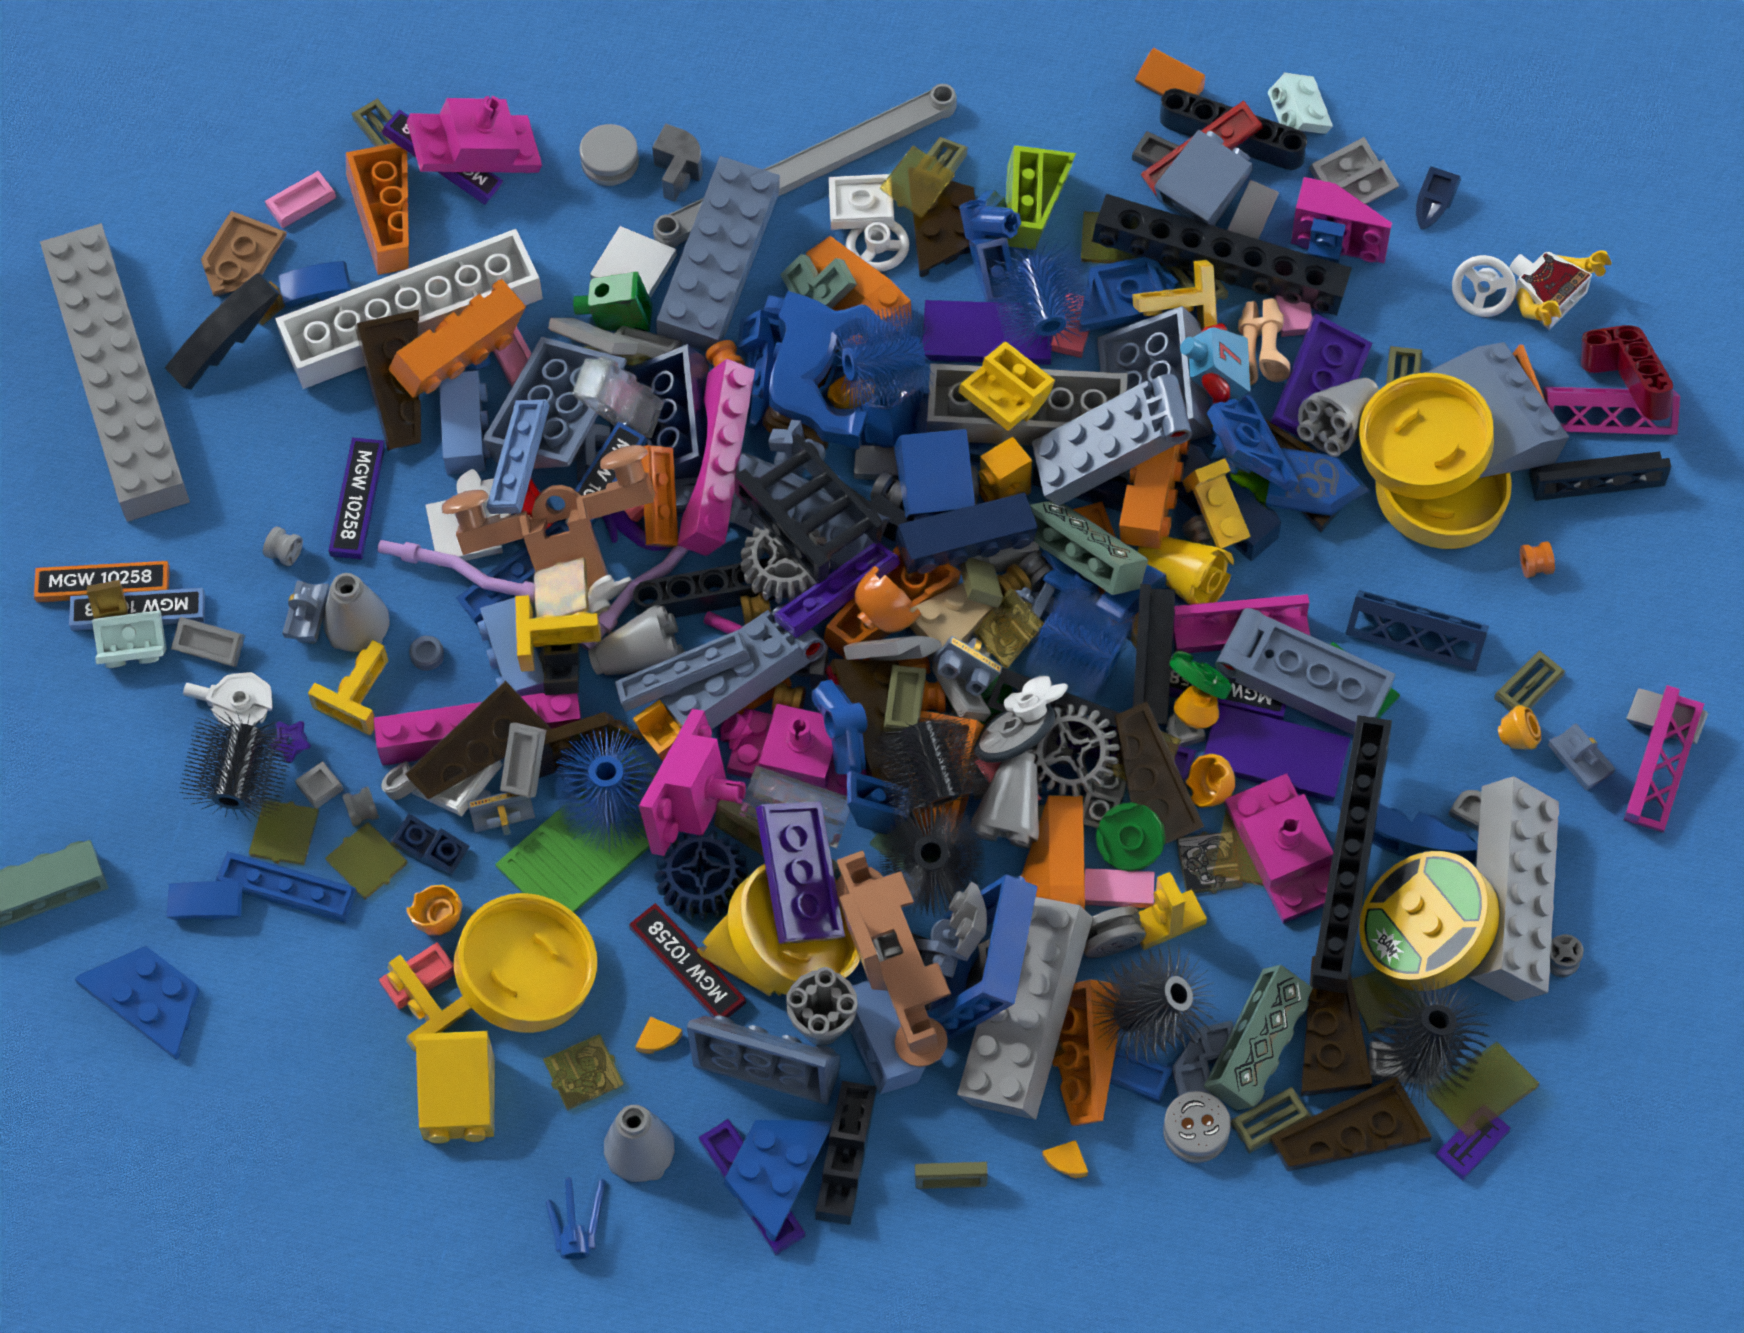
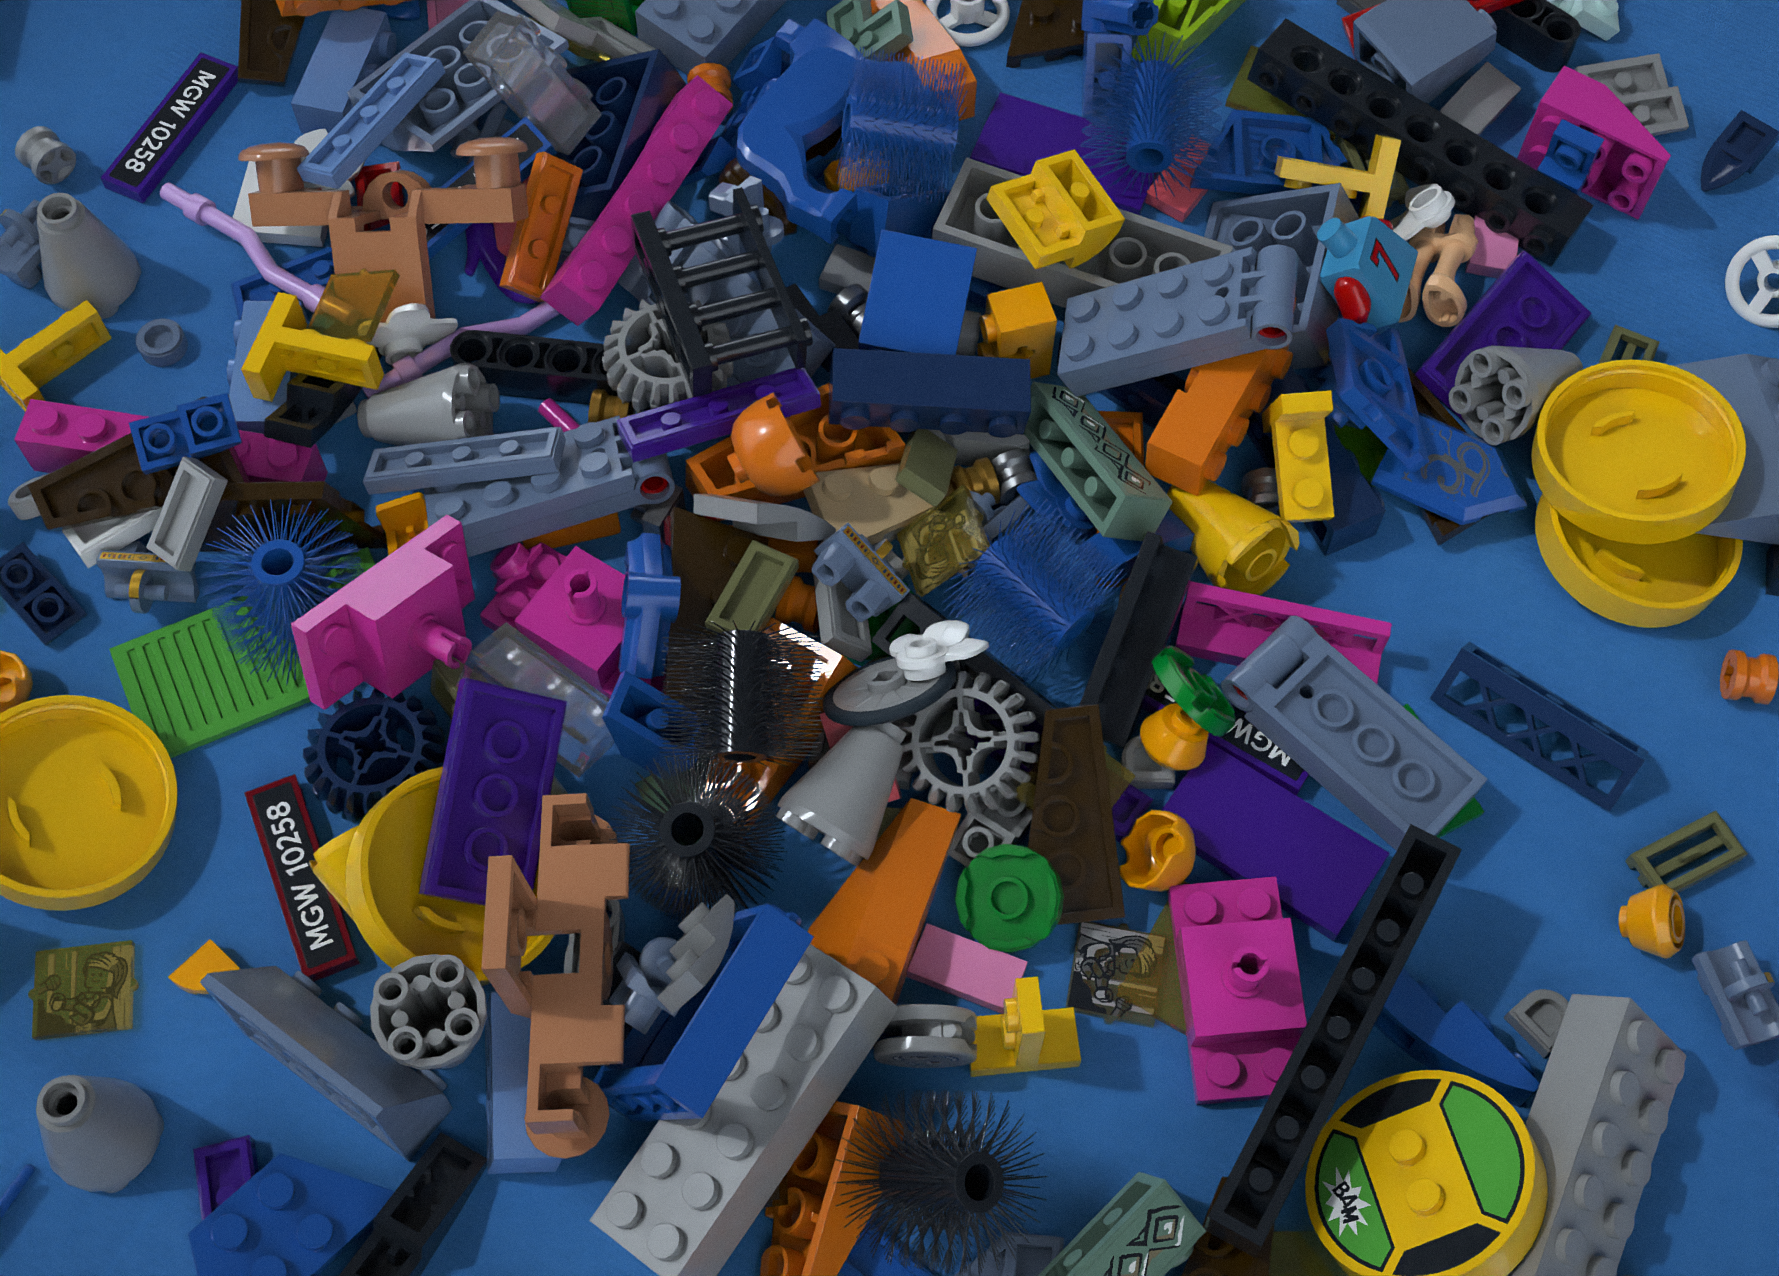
camera: 15 degrees right, 0 degrees up
(504, 708) = (191, 431): none -> blue slope
(789, 696) = (603, 543): pearl gold wheel -> none
(1242, 304) = (1426, 207): none -> white plate

